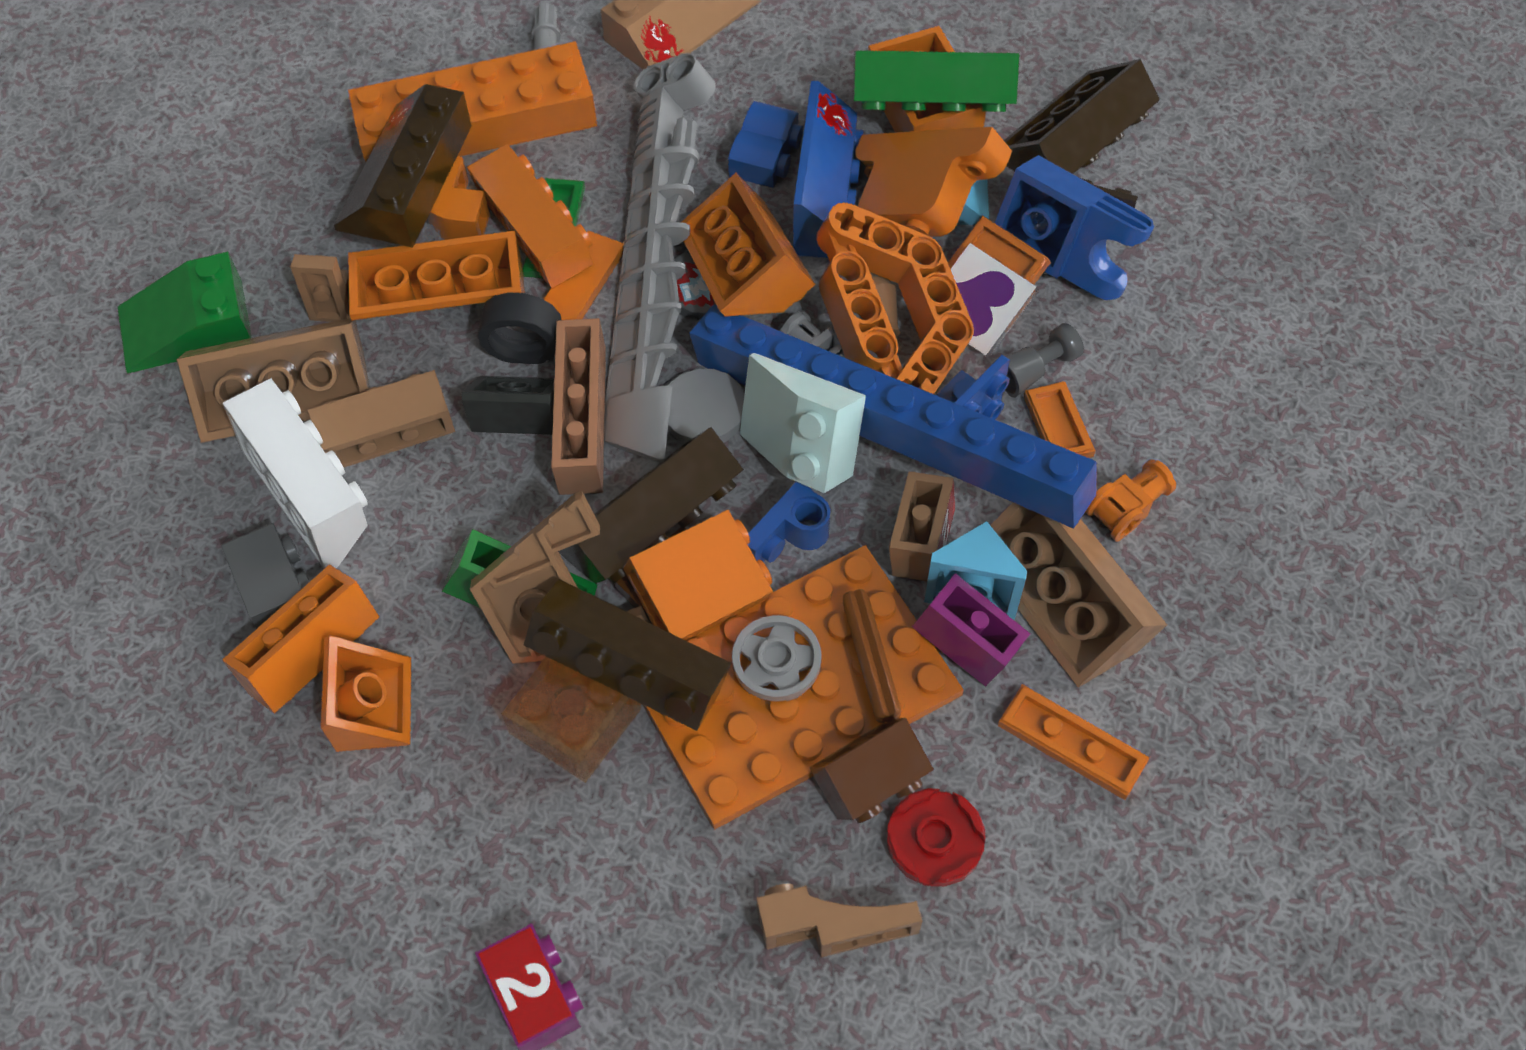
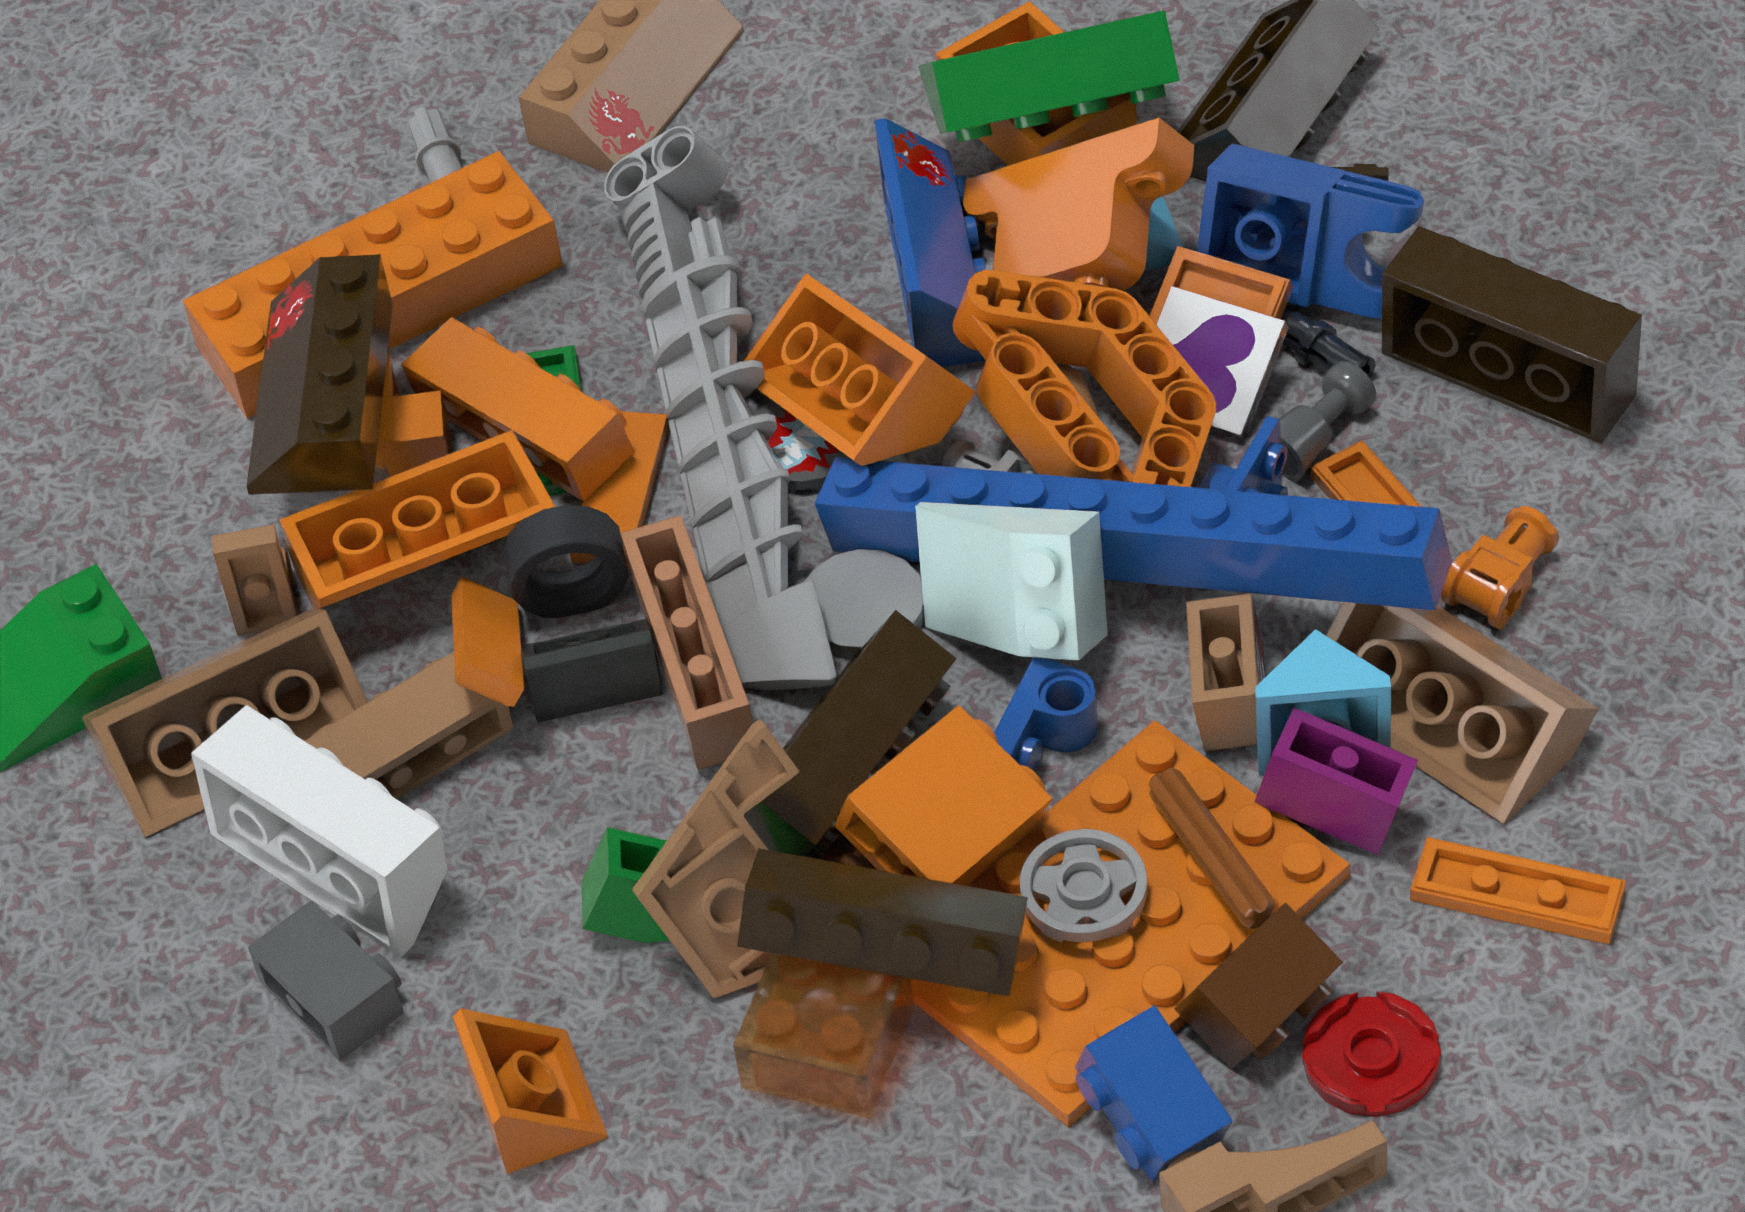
camera: 10 degrees left, 10 degrees down
(290, 643) = (408, 1036): orange brick -> none
(449, 372) = (487, 642): none -> orange tile
(764, 144) = (826, 228): blue brick -> none
(772, 832) = (1150, 1093): none -> blue brick
(1056, 306) = (1318, 344): none -> black pin
(1186, 334) = (1510, 334): none -> dark brown brick

